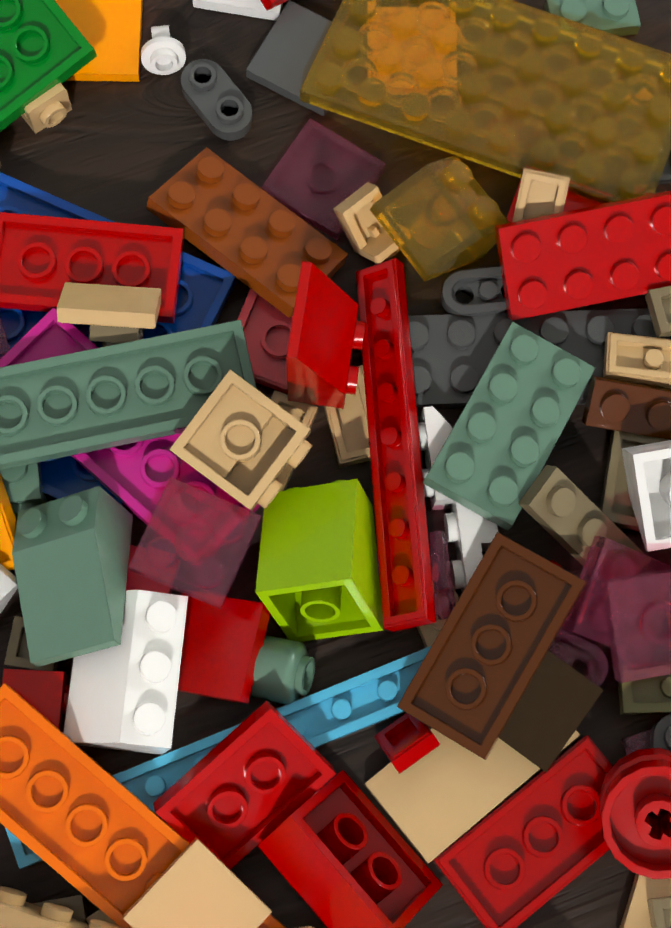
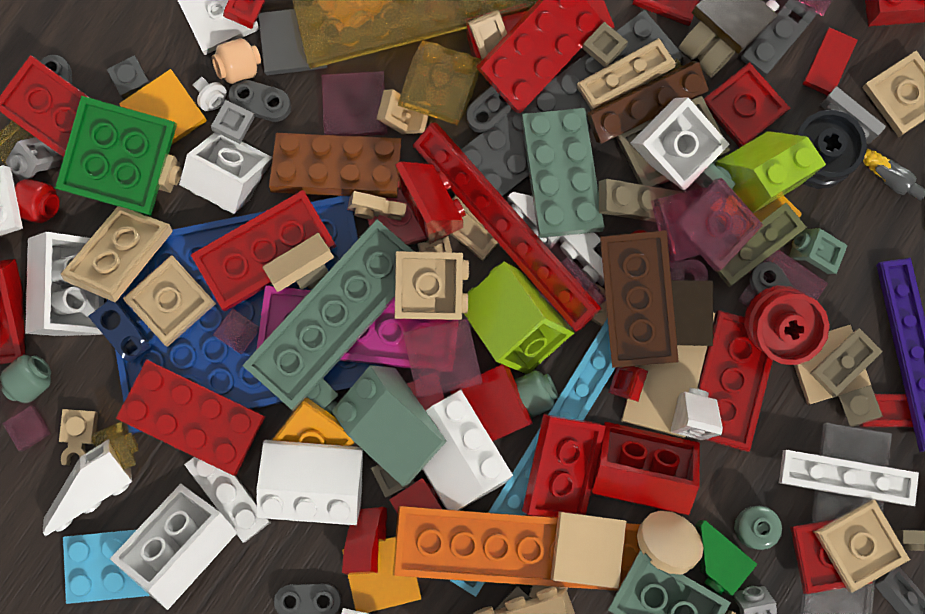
camera: 30 degrees left, 5 degrees up
(112, 148) = (224, 171): none -> white slope
(165, 99) = (232, 121): none -> light grey plate
(222, 34) = (236, 60): none -> light nougat head
(248, 302) = (368, 206): none -> tan plate
(459, 843) = (697, 415): none -> white slope

